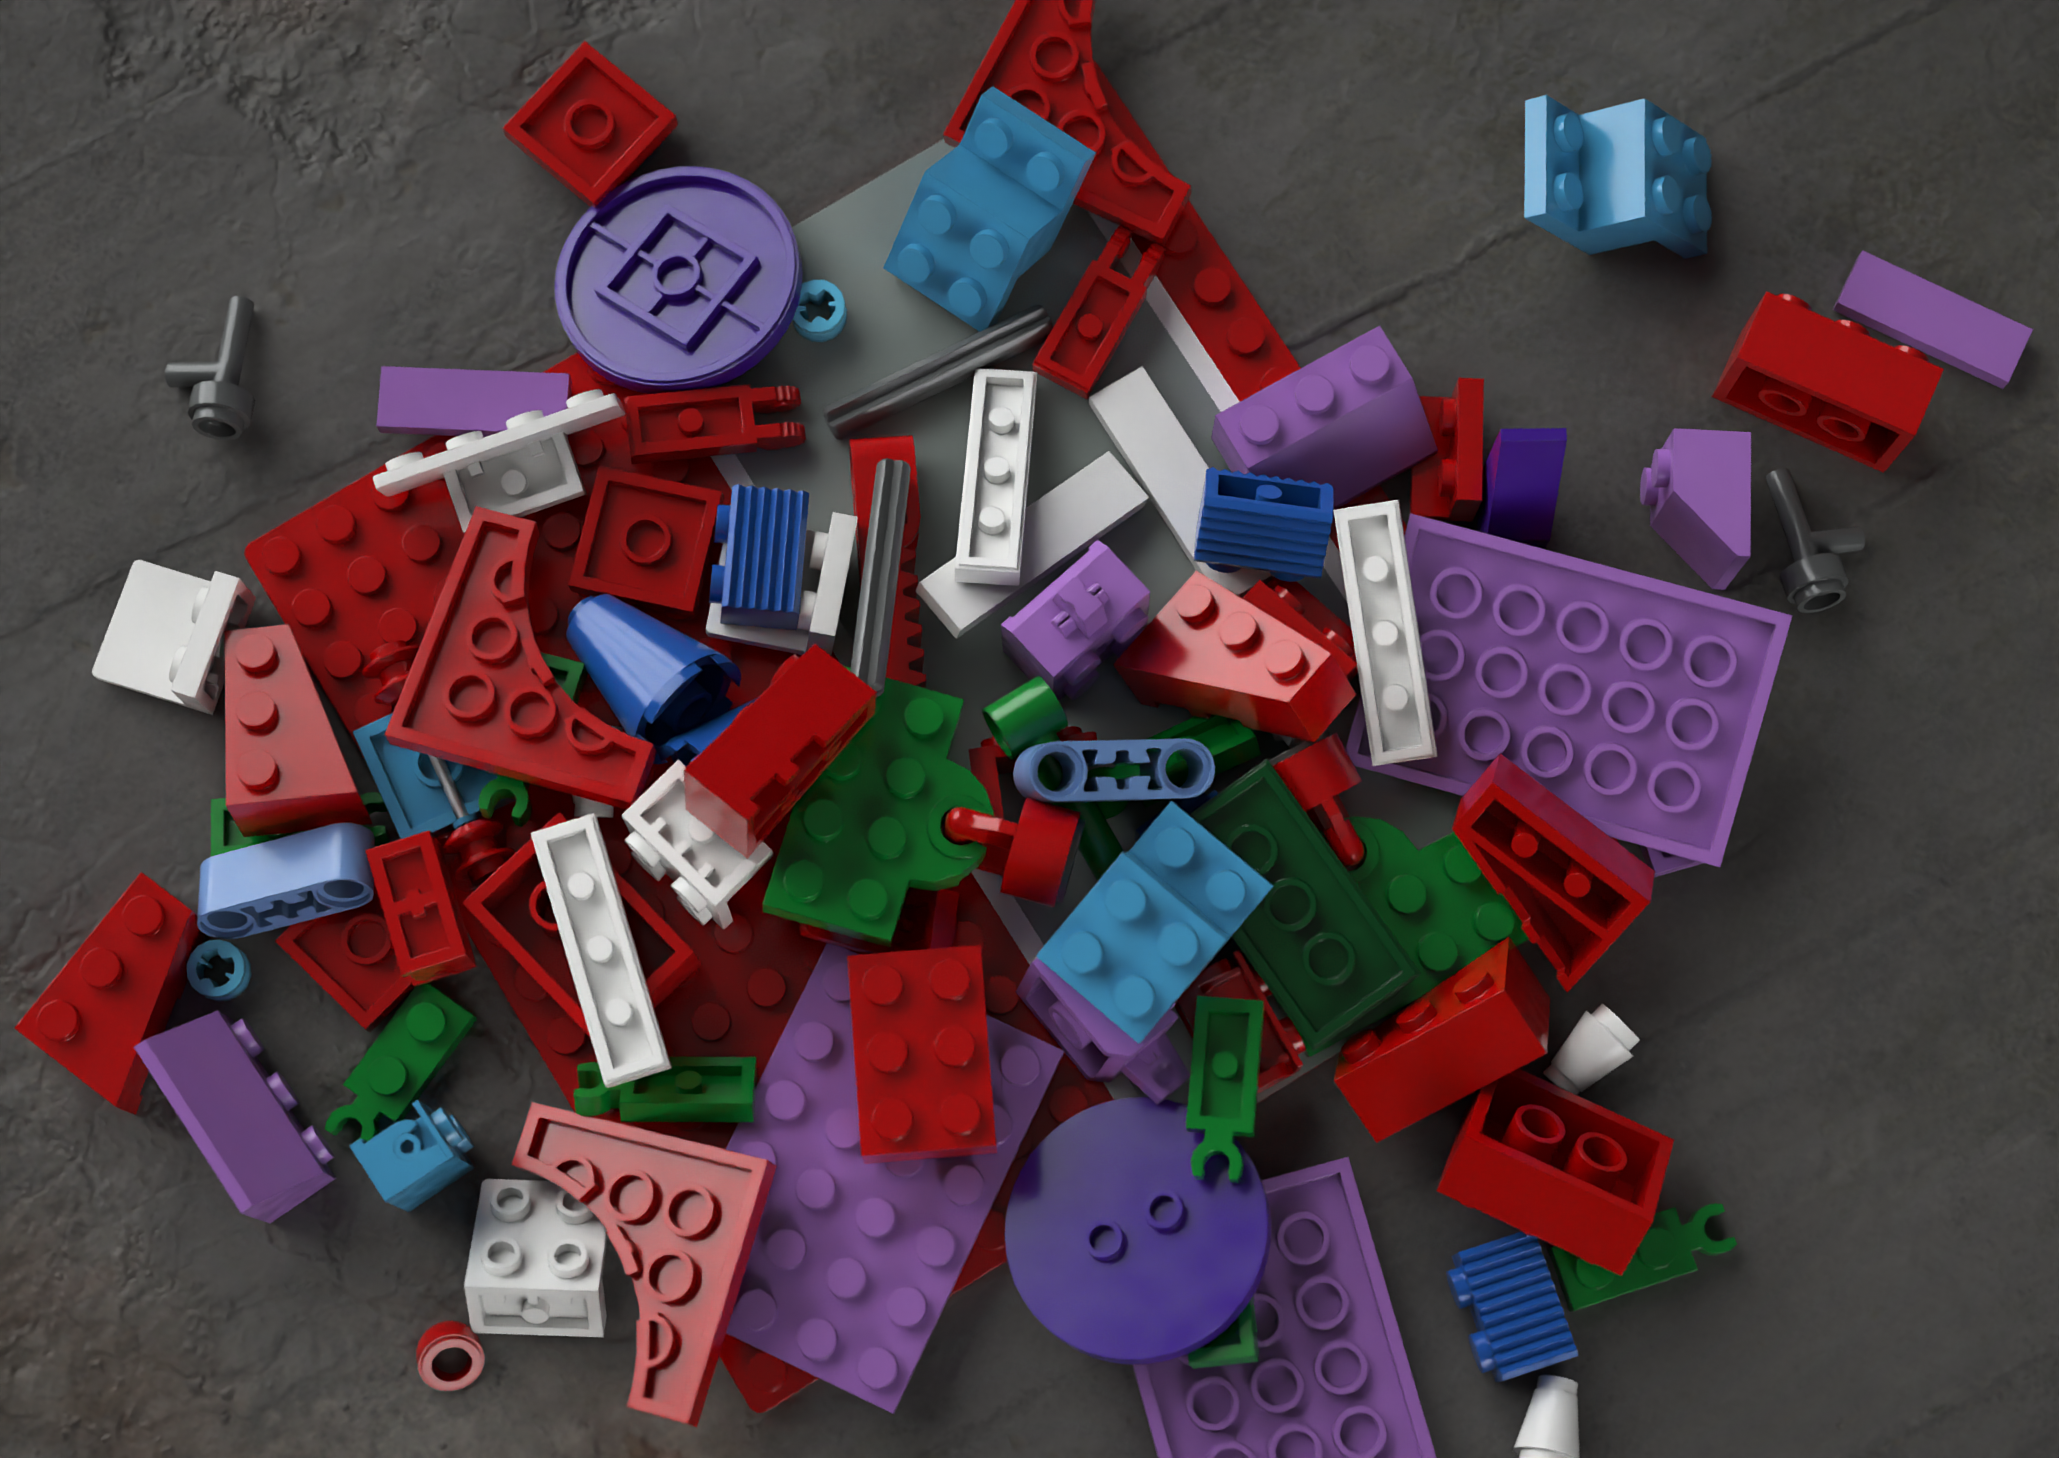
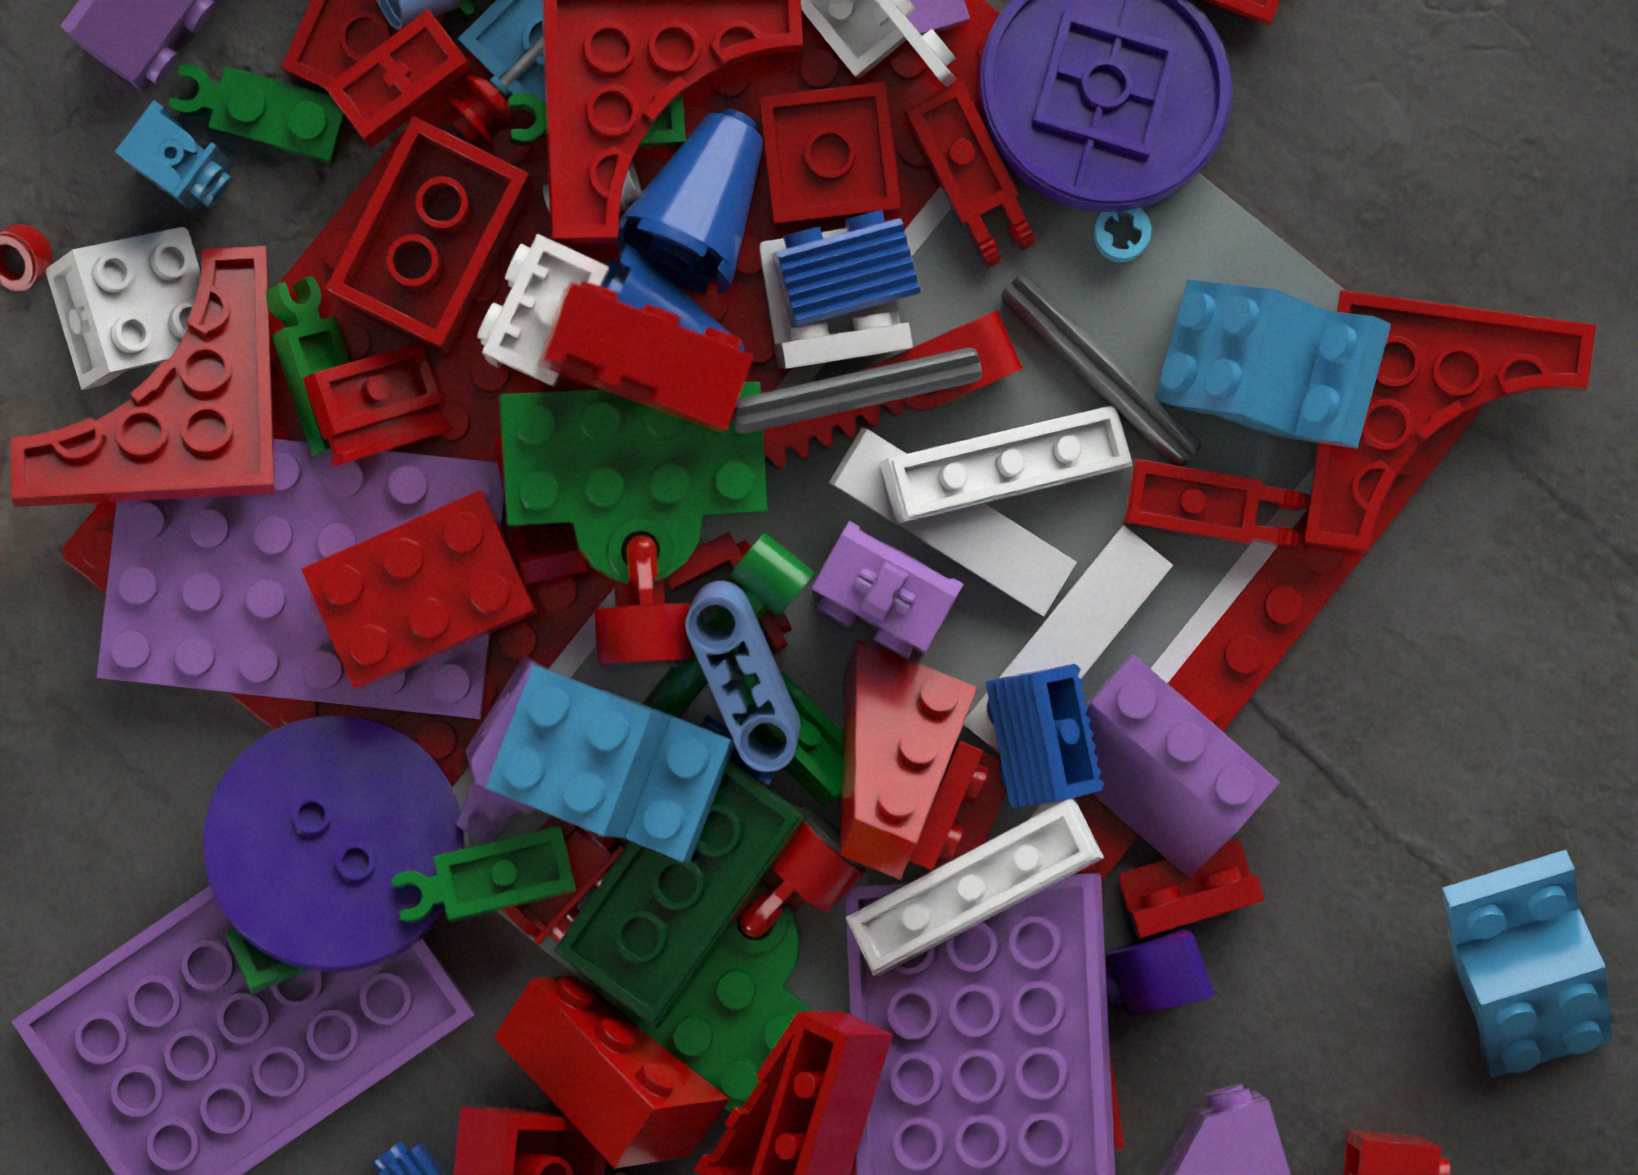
camera: 70 degrees right, 10 degrees up
(601, 950) = (410, 260): white tile -> none
(725, 1041) = (376, 403): none -> red plate

